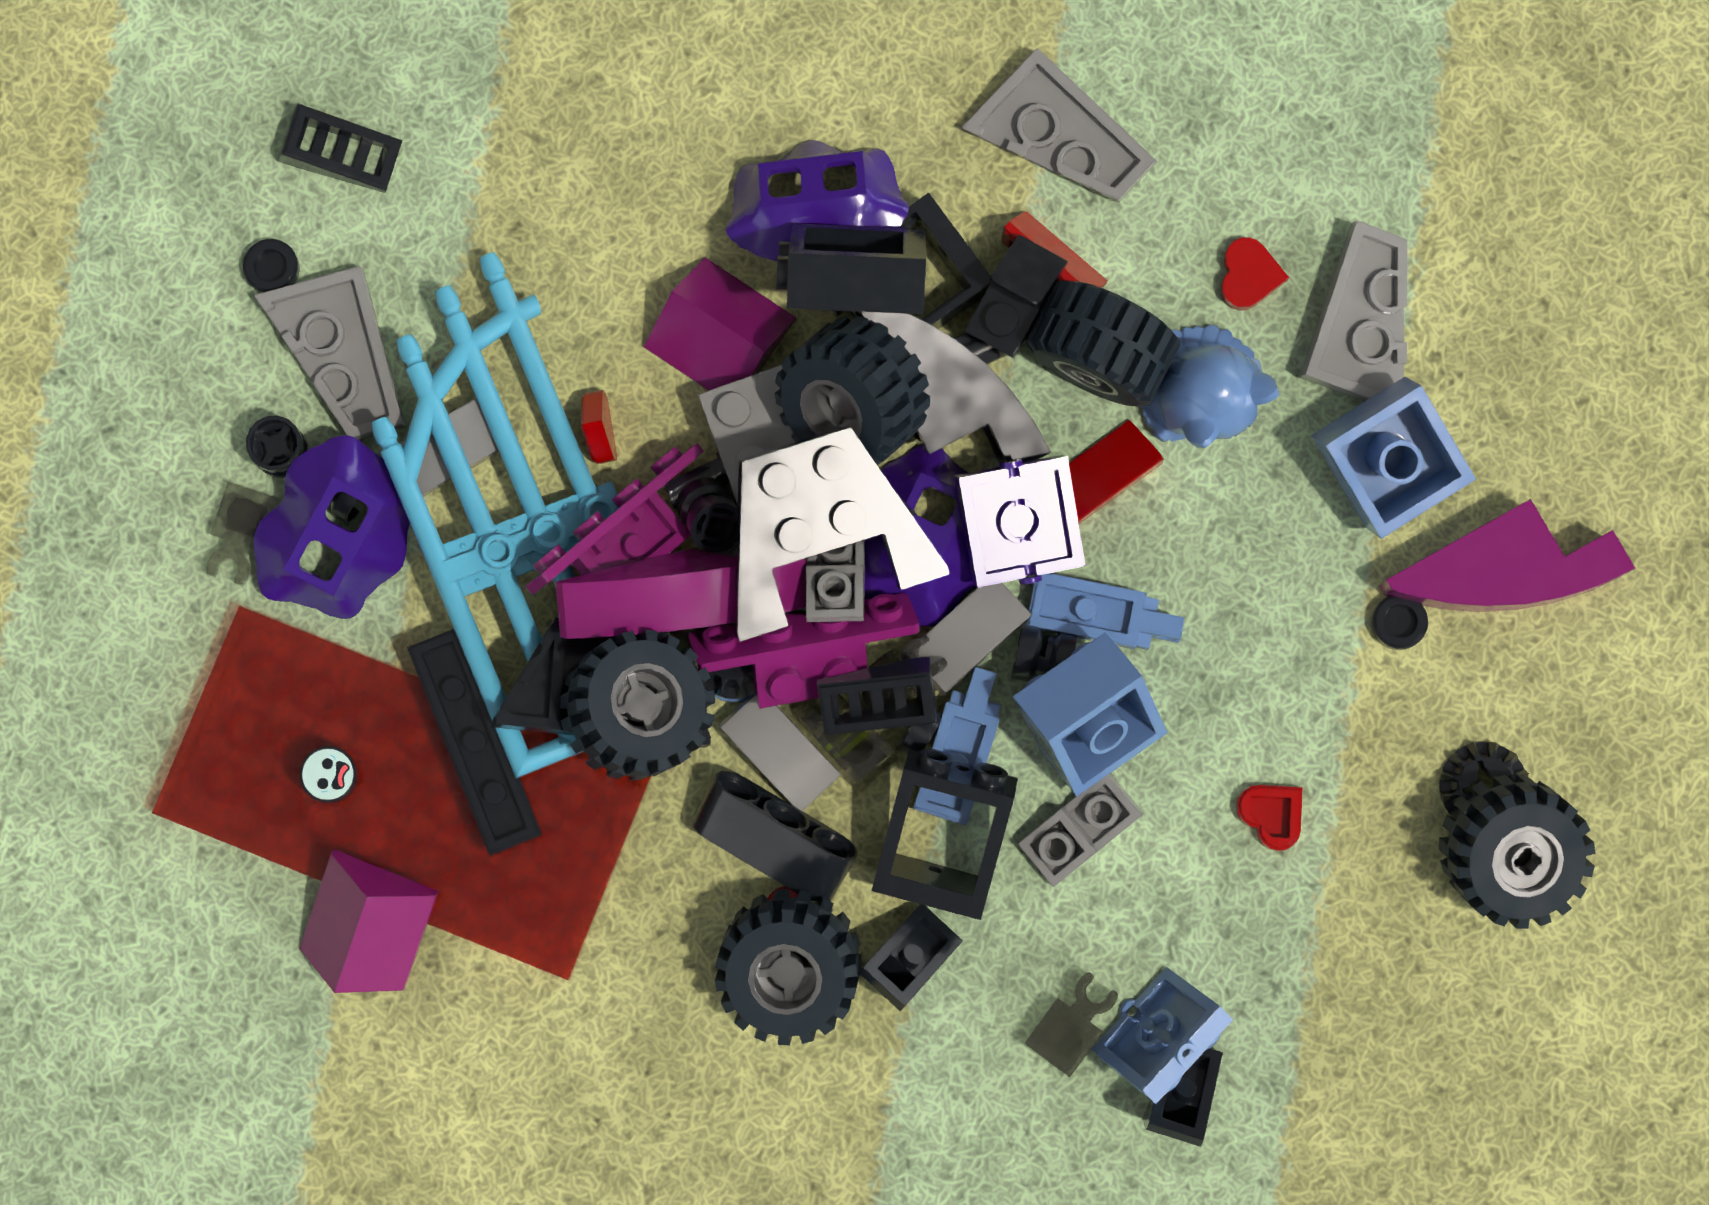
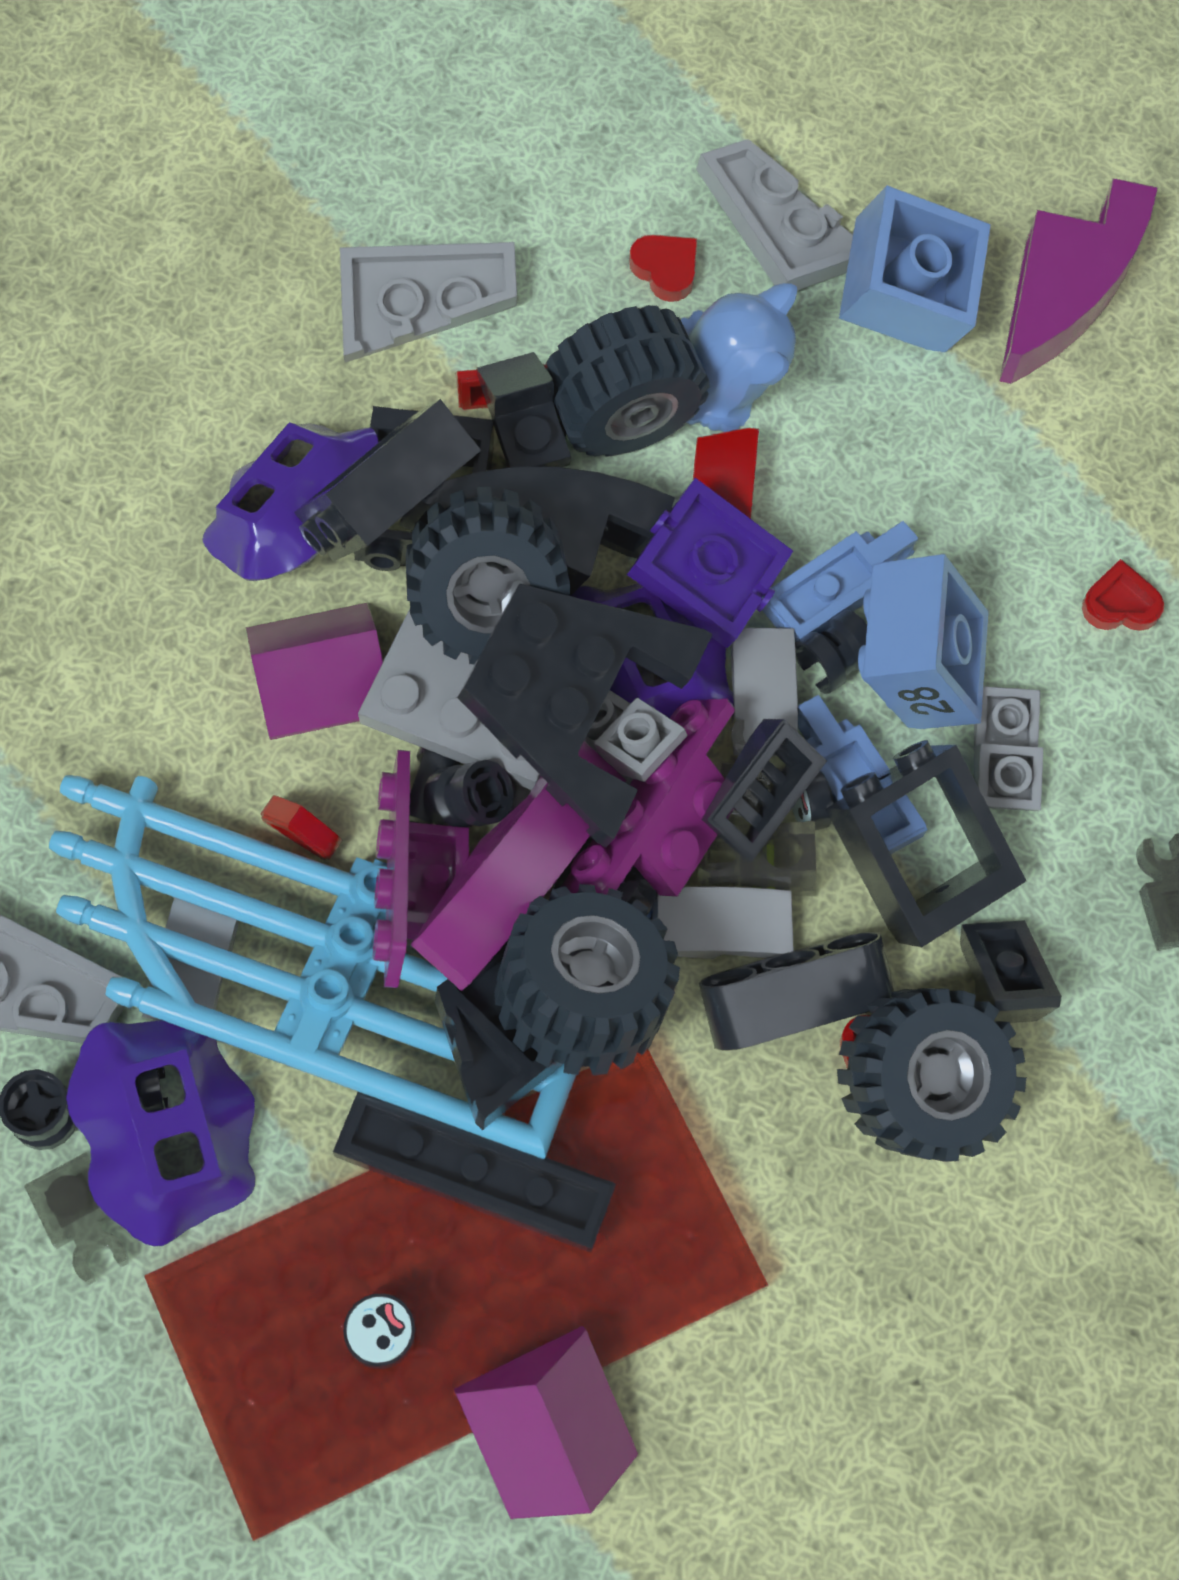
camera: 50 degrees left, 15 degrees down
(1399, 623) = (1044, 388): black tile -> none

